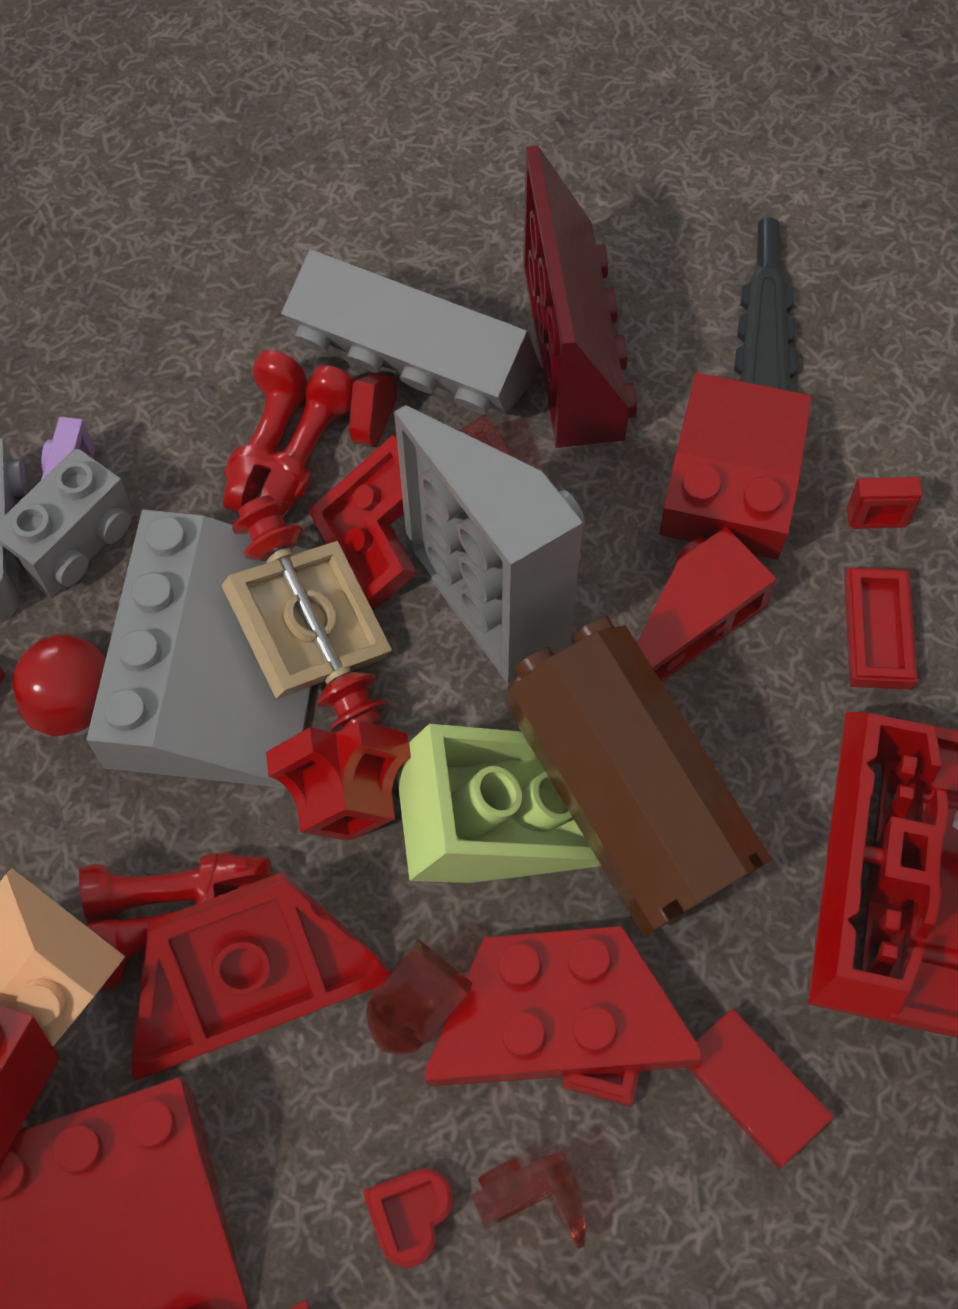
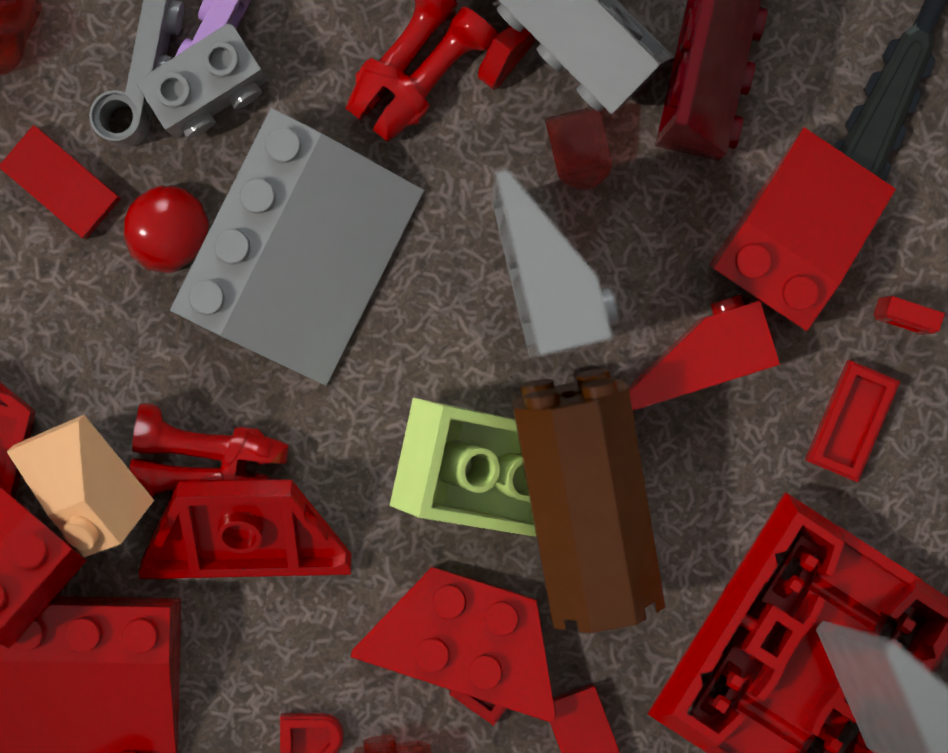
camera: 15 degrees right, 25 degrees up
(306, 615) = (381, 254): tan plate -> none
(341, 777) = (362, 409): red brick -> none
(360, 519) = (452, 176): red plate -> none
(414, 1000) = (359, 602): clear red plate -> none

